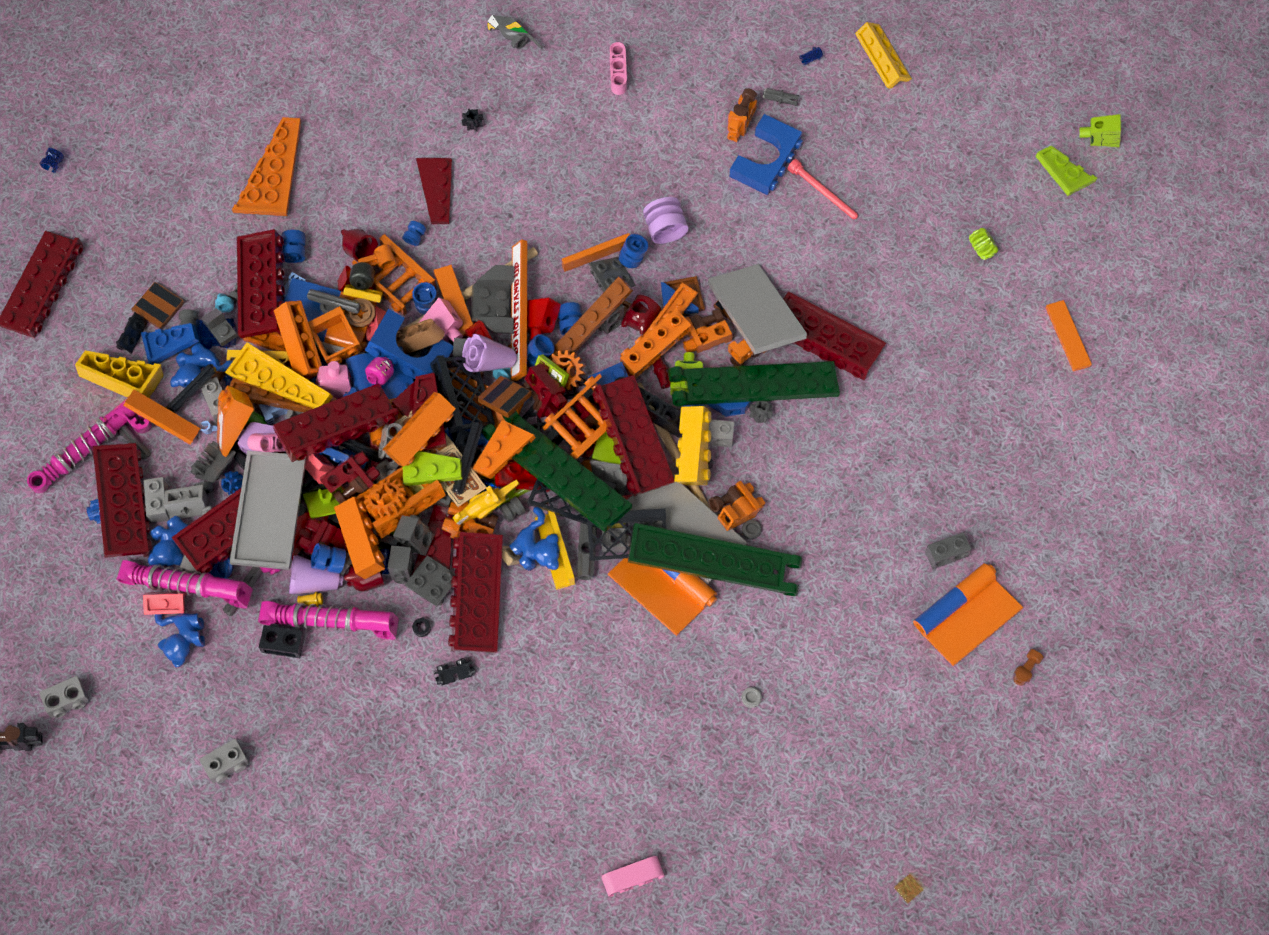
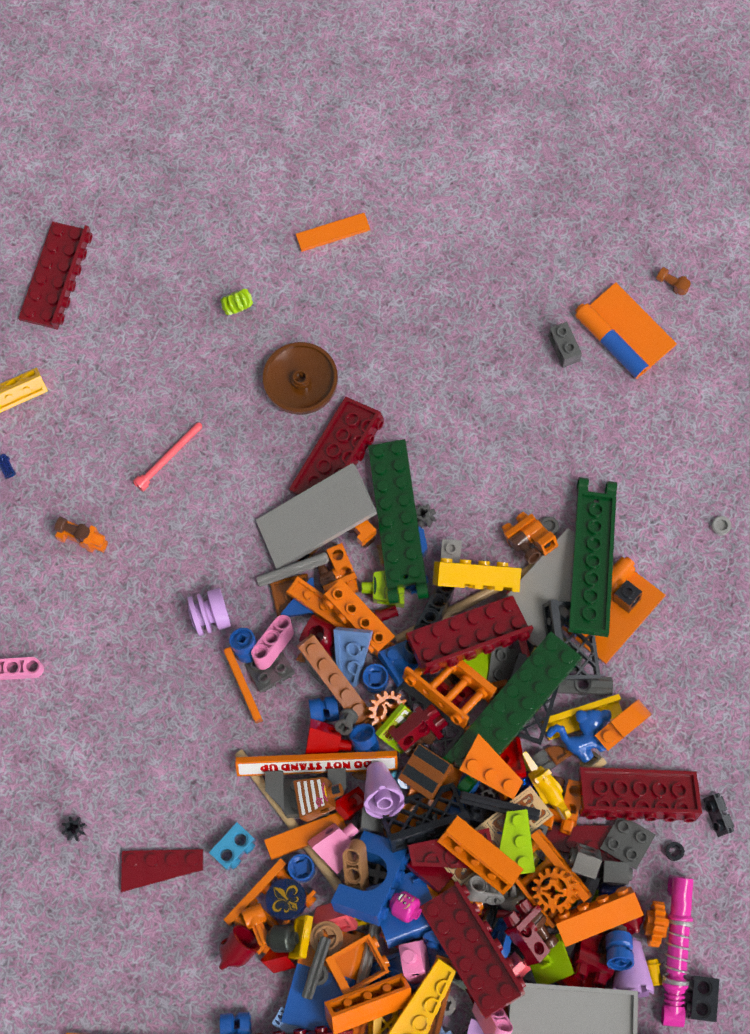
camera: 90 degrees left, 5 degrees up
(352, 597) = (656, 924): none -> orange gear
(397, 283) = (286, 899): none -> clear blue tile
(414, 233) = (218, 887): blue wheel -> none
(451, 242) = (228, 842): none -> dark azure brick
(485, 303) = (316, 797): none -> dark orange torso
(520, 524) = (558, 754): none -> dark orange tile
(545, 580) = (623, 724): none -> orange arch
(555, 331) = (345, 721): none -> dark grey bush
(597, 360) = (375, 678): none -> blue wheel
(621, 337) = (351, 651): none -> medium blue wing
(635, 274) = (279, 636): none -> bright pink beam
(674, 594) = (627, 596): none -> black brick
(706, 292) = (292, 569): none -> light grey axle
(764, 176) = (111, 490): blue arch -> none
(780, 96) = (55, 497): dark grey axle -> none
(903, 300) = (300, 378): none -> reddish brown dish
(1008, 91) = (55, 275): none -> dark red bracket
(1066, 174) = (154, 225): lime wing -> none
(1103, 131) = (110, 186): lime torso -> none

